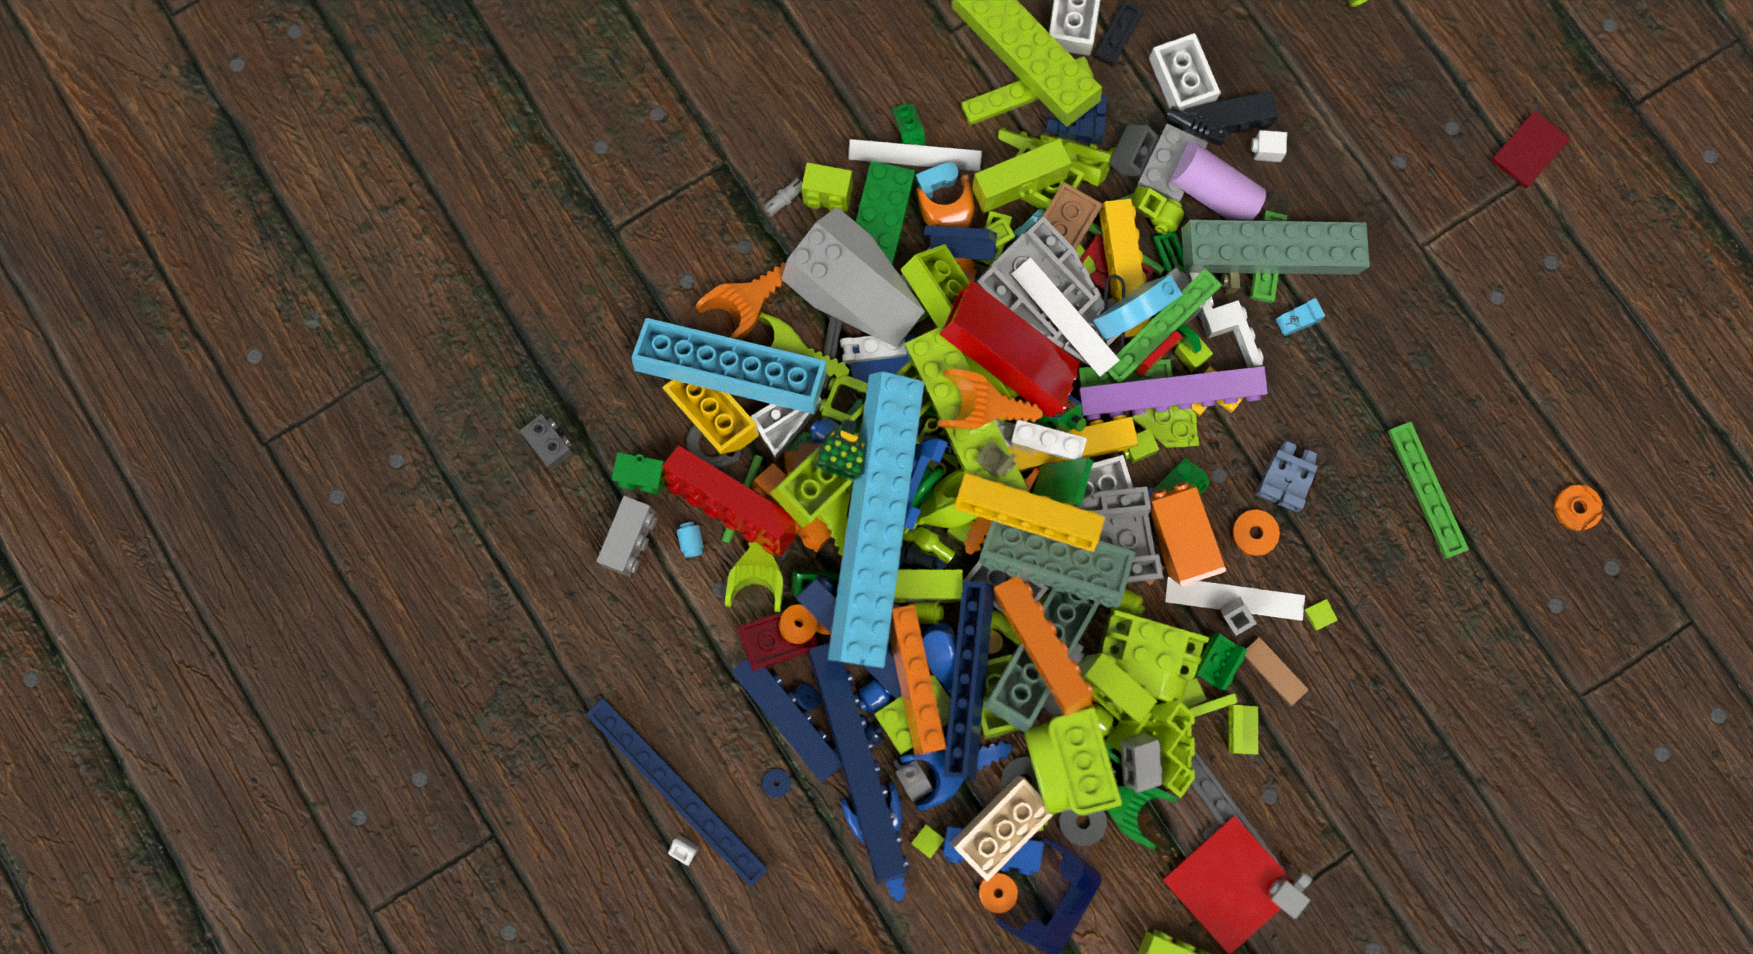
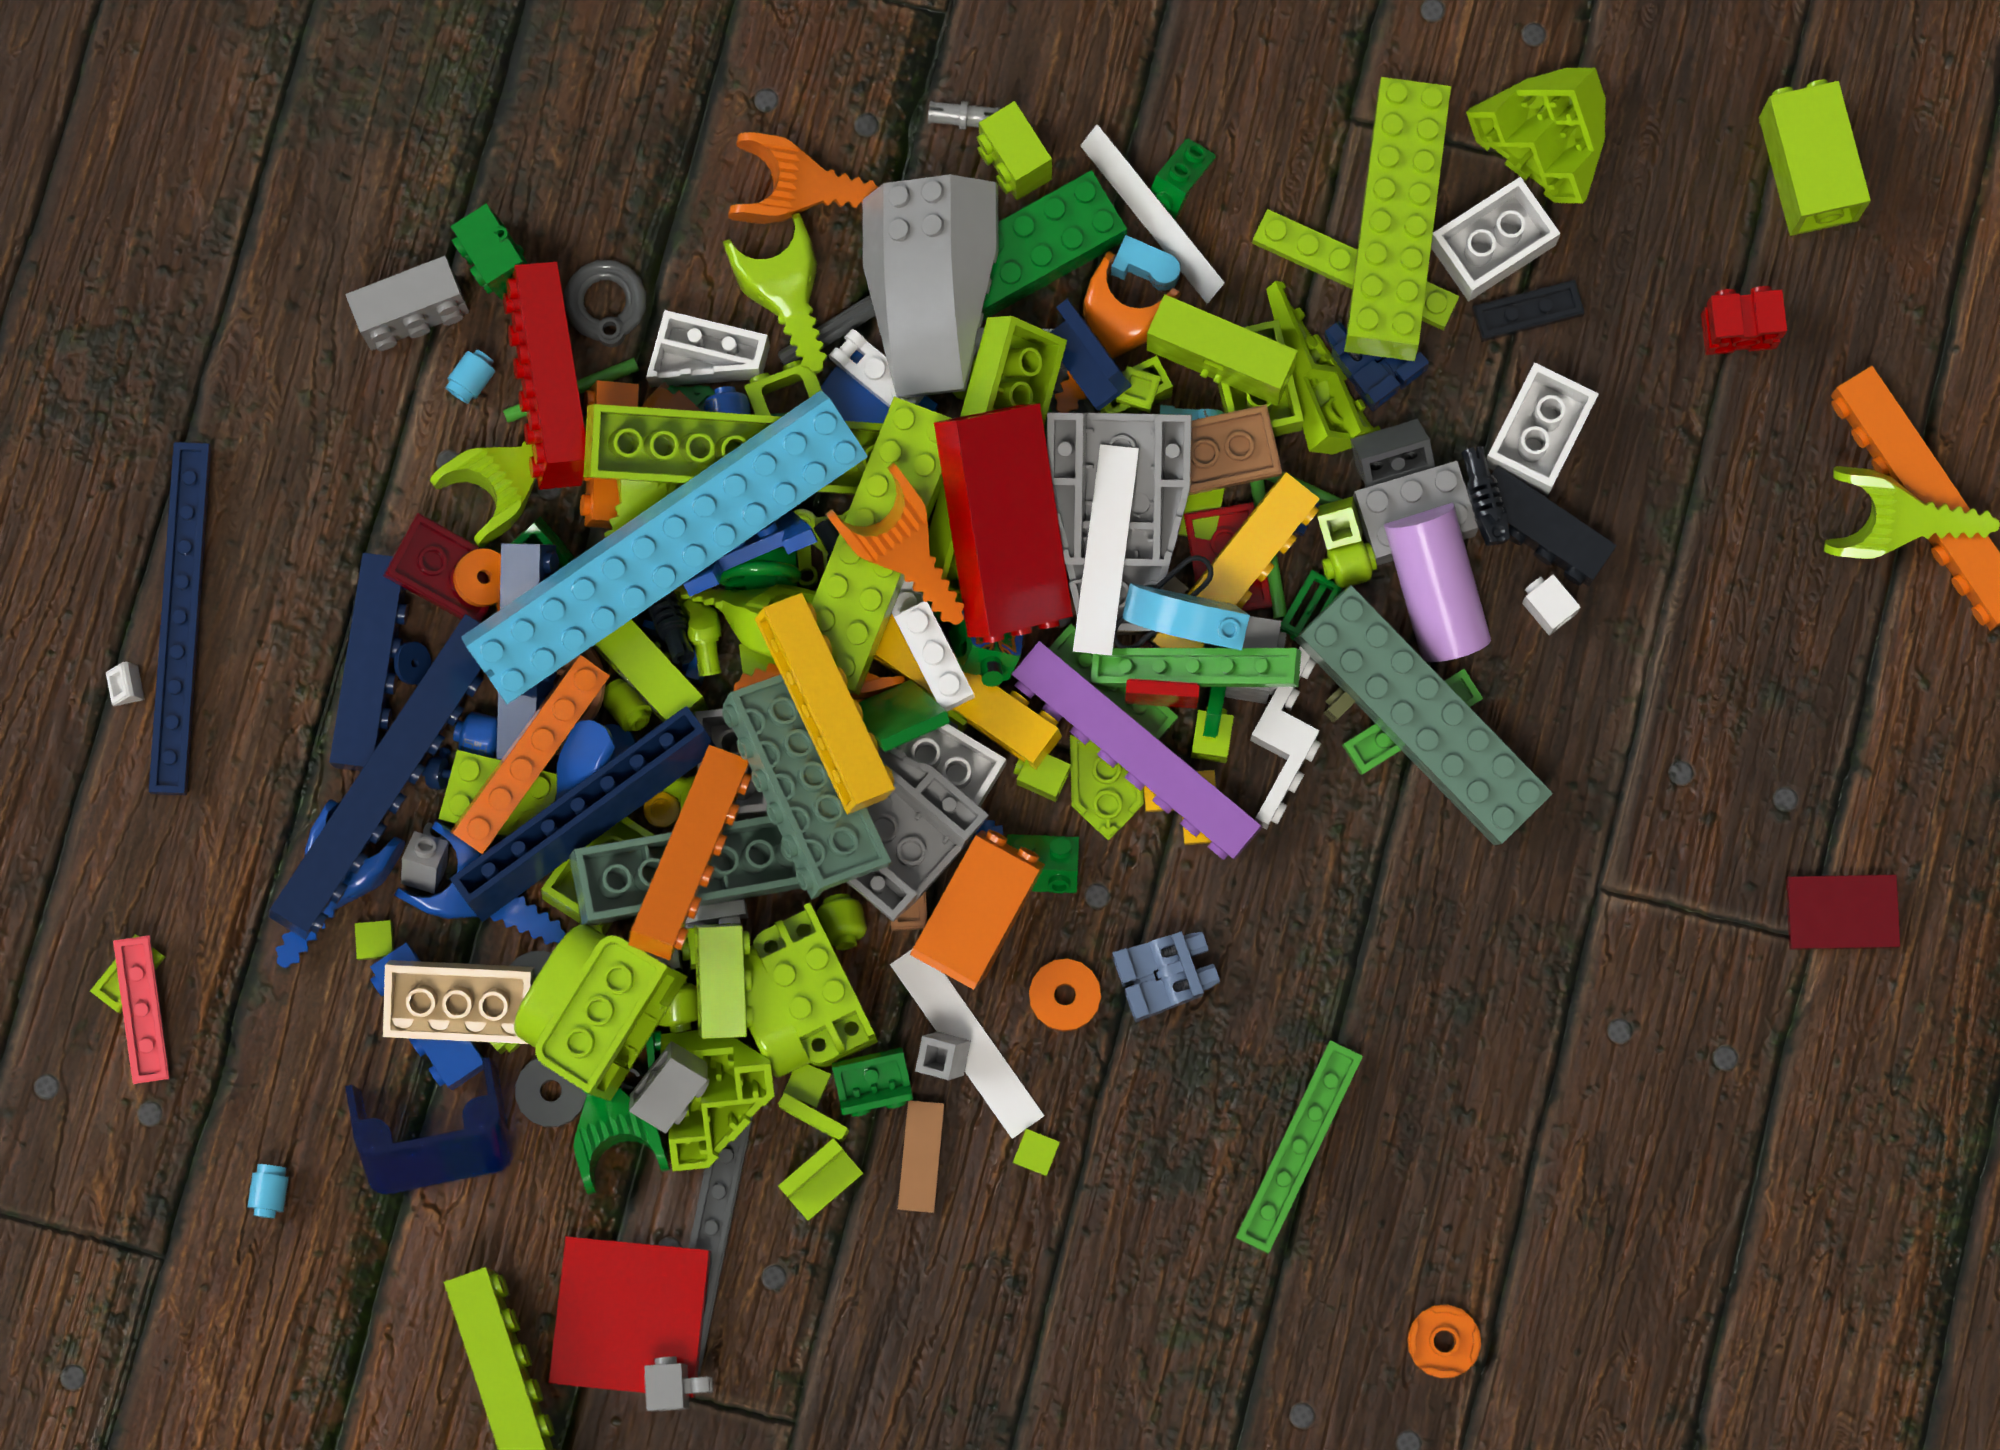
camera: 50 degrees right, 0 degrees up
(547, 442) = (436, 119): dark grey brick -> none
(715, 415) = (633, 261): yellow slope -> none
(729, 365) = (697, 233): medium azure brick -> none
(784, 783) = (299, 723): dark blue wheel -> none
(841, 452) = (701, 438): dark green torso -> none
(995, 460) = (851, 615): olive bracket -> none
(1002, 903) = (399, 1079): orange piece -> none
(1300, 317) = (1369, 821): medium azure leg -> none

